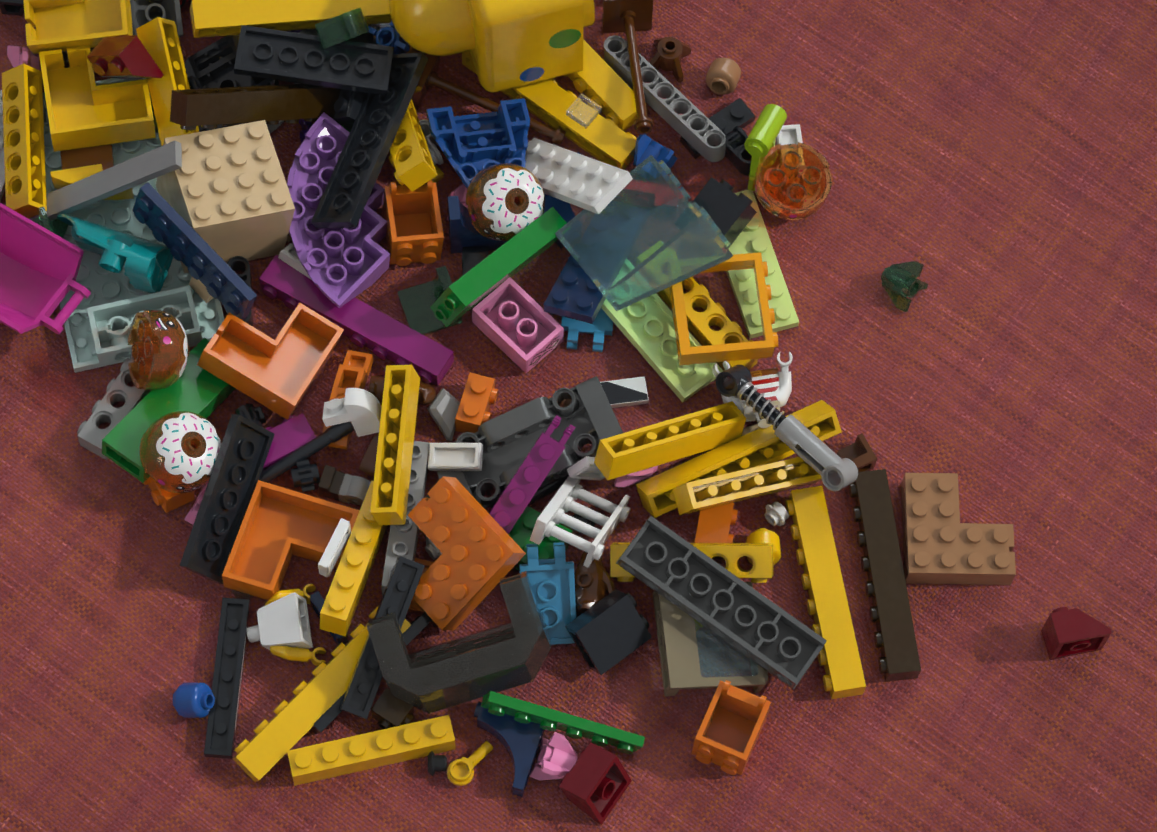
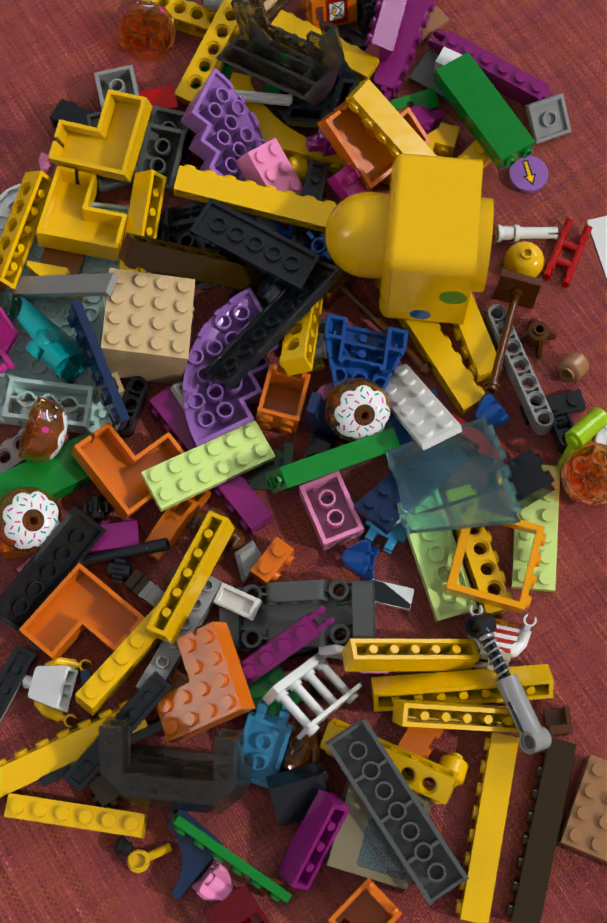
camera: 25 degrees right, 5 degrees up
(123, 59) = (111, 192): dark red slope -> none
(334, 547) = (110, 643): white tile -> none
(342, 27) = (286, 227): clear green brick -> none
(358, 407) = (175, 533): white brick -> none
(359, 324) = (207, 466): none -> yellowish green plate
(571, 363) = (361, 558): none -> blue brick
(583, 110) = (451, 356): clear tile -> none
(644, 669) = (313, 840): none -> magenta brick
(776, 514) = (473, 745): white plate -> none

